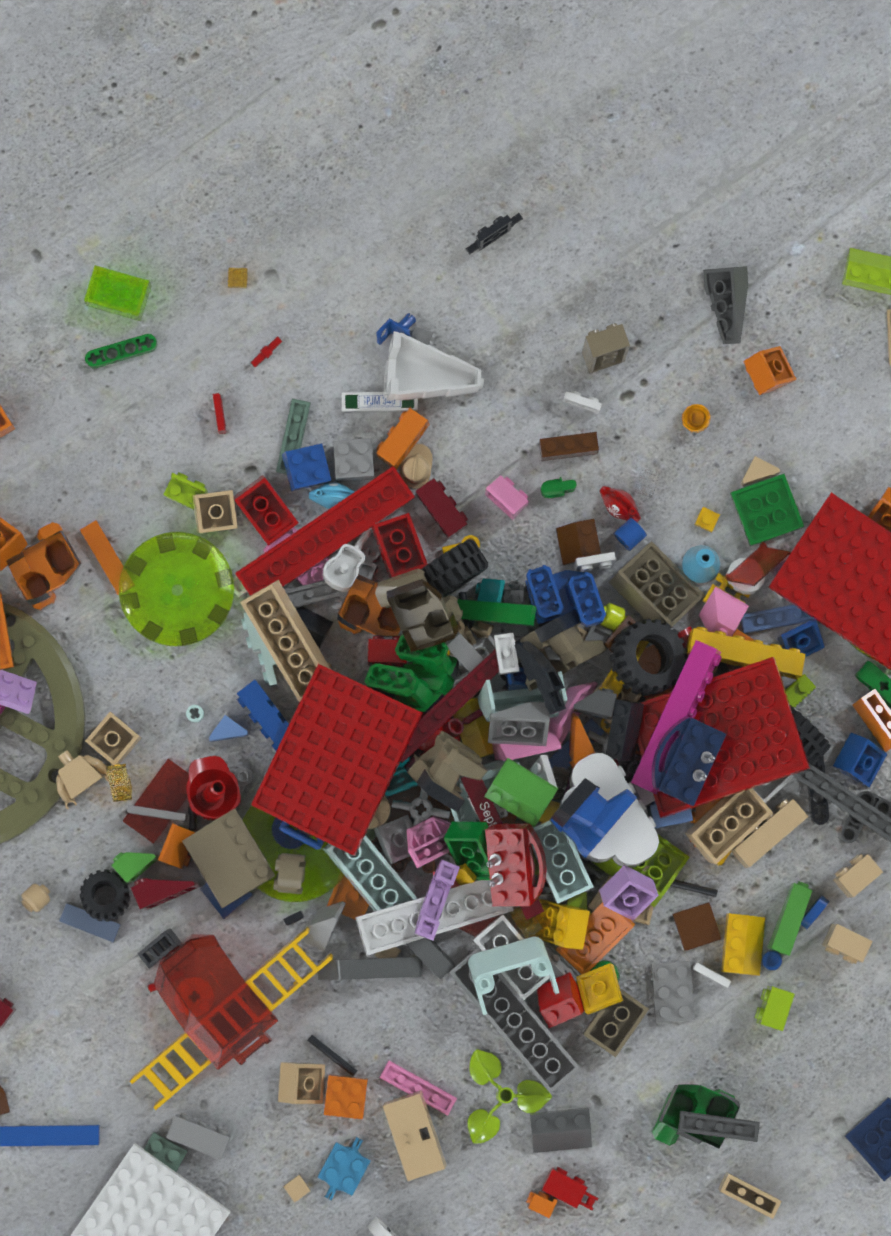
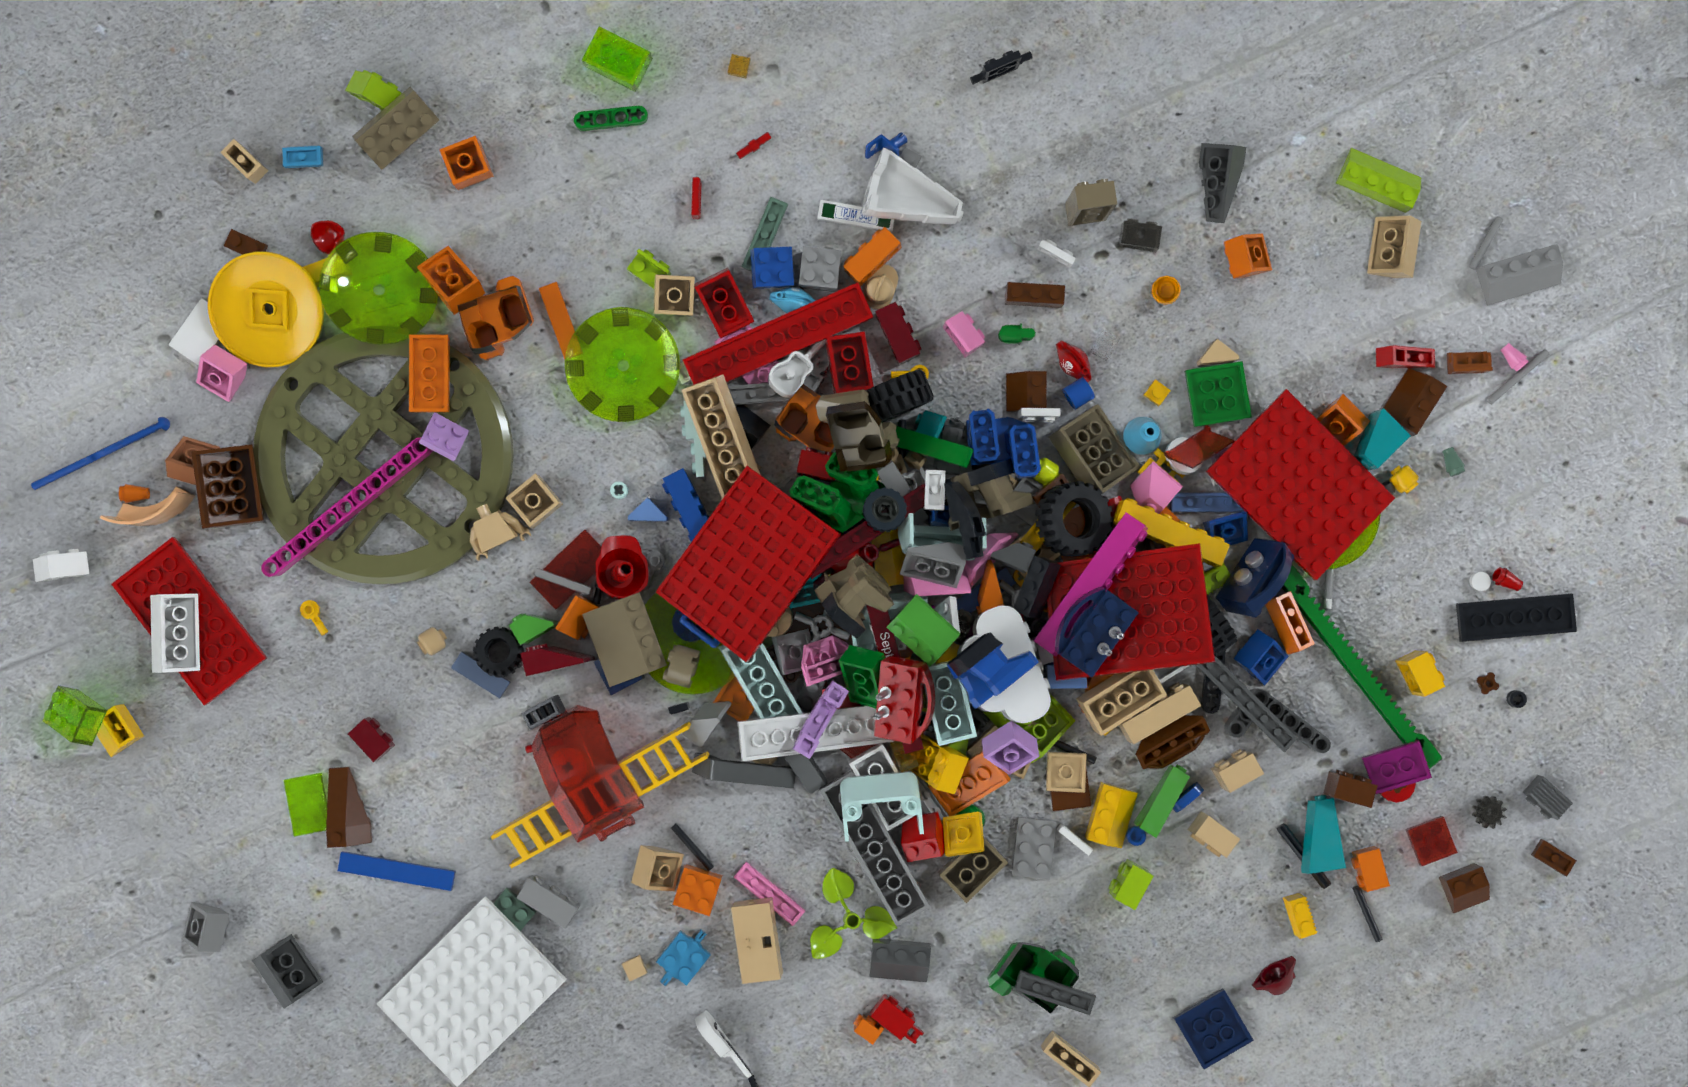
camera: 15 degrees right, 5 degrees up
(119, 782) = (532, 544): clear yellow plate -> none
(421, 879) = (809, 695): none -> dark grey plate
(465, 692) = (884, 498): none -> black wheel
(465, 875) = (853, 699): yellow tile -> none
(651, 374) = (1131, 240): none -> clear smoke brick
(689, 909) = (1066, 772): none -> tan tile
(788, 859) = (1172, 742): none -> reddish brown wedge
(837, 681) = (1256, 577): none -> dark blue piece

